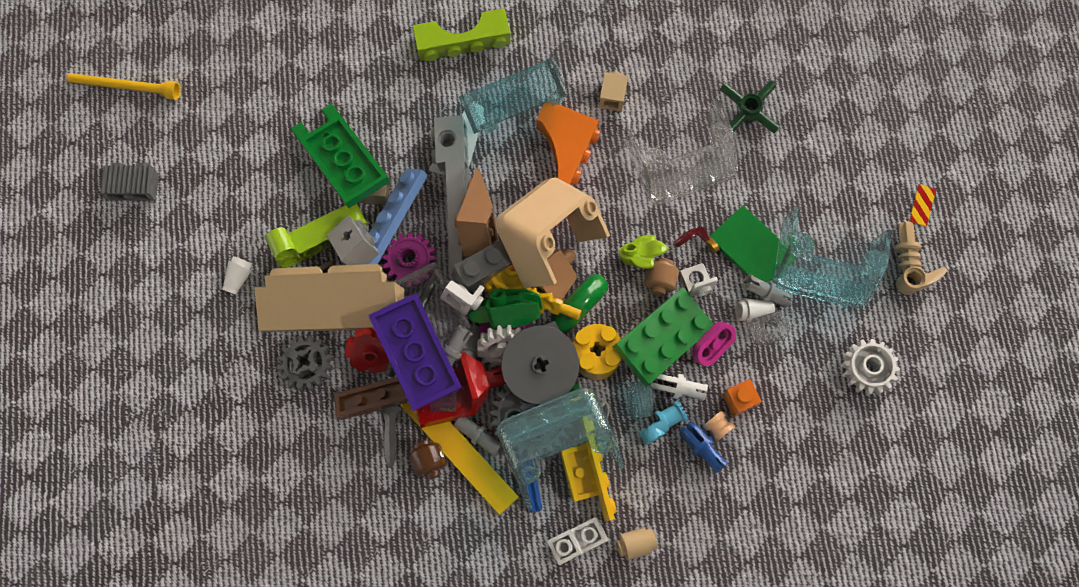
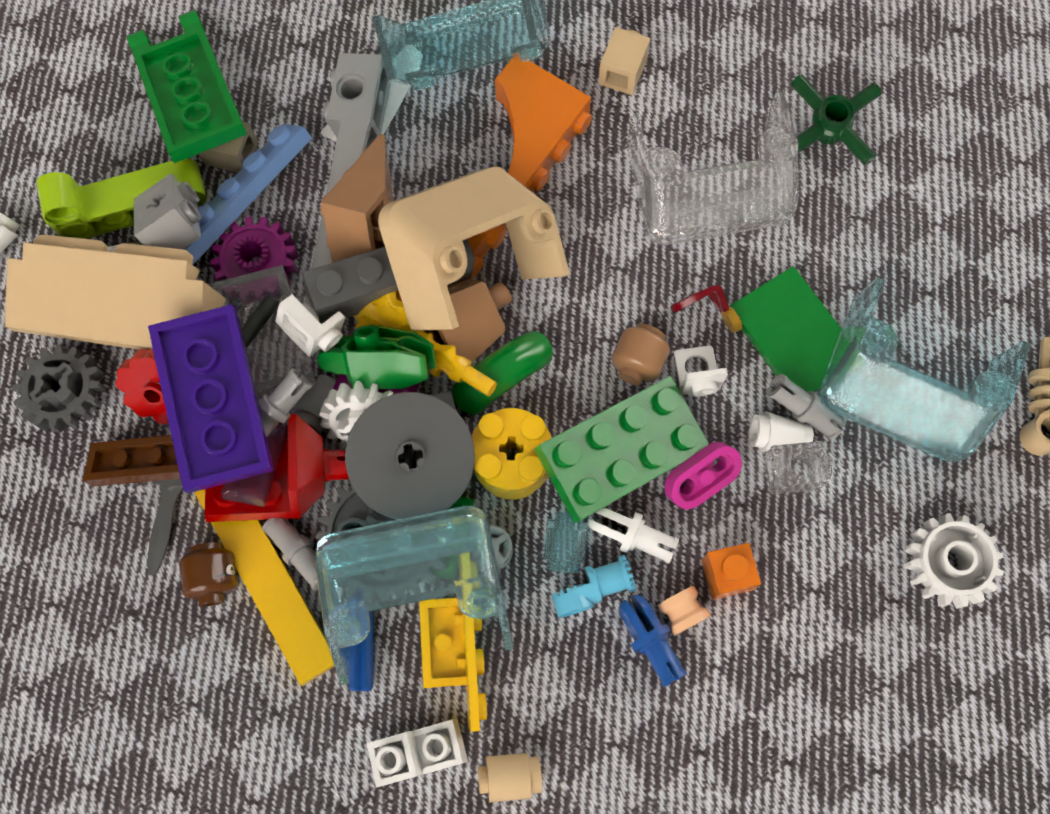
camera: 15 degrees right, 0 degrees up
(642, 251) = (617, 310): lime plate -> none

